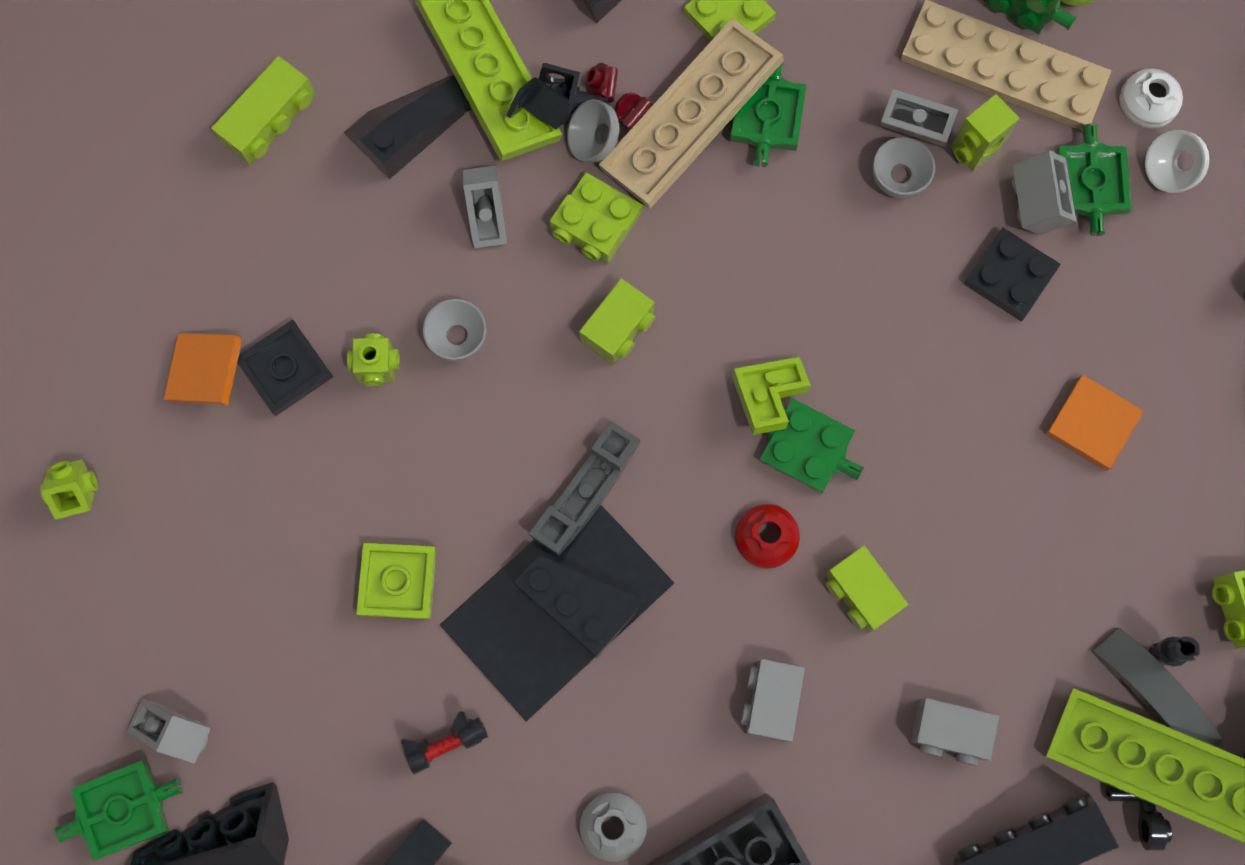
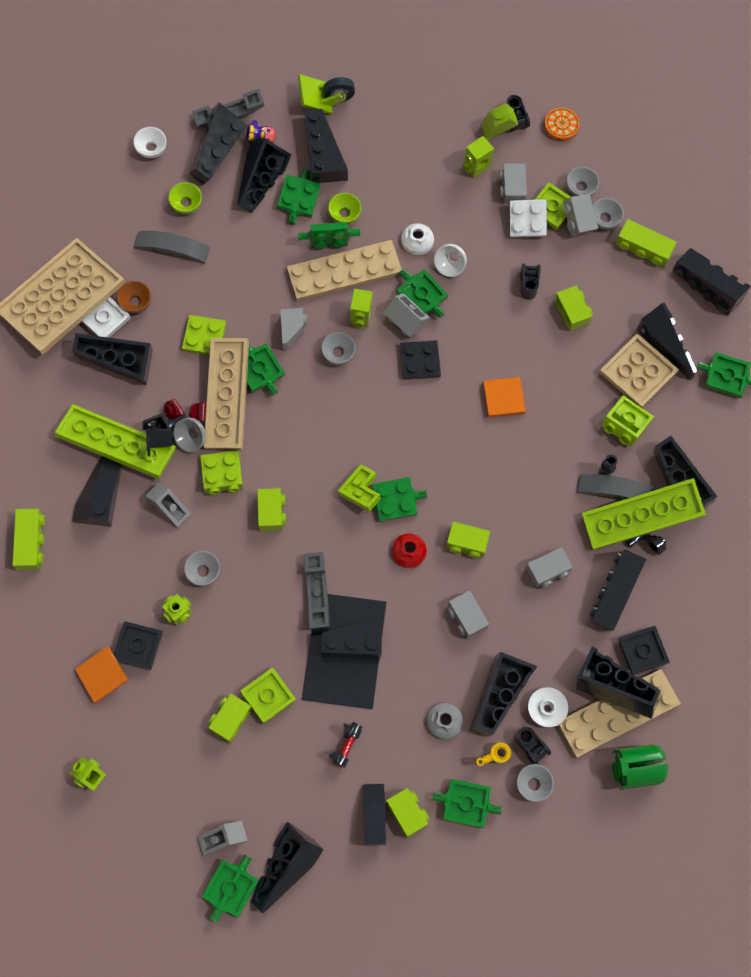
camera: 45 degrees left, 5 degrees down
(318, 569) = (229, 718): none -> lime brick
(862, 88) = (292, 326): none -> light grey slope
(919, 118) = (328, 321): light grey brick -> none

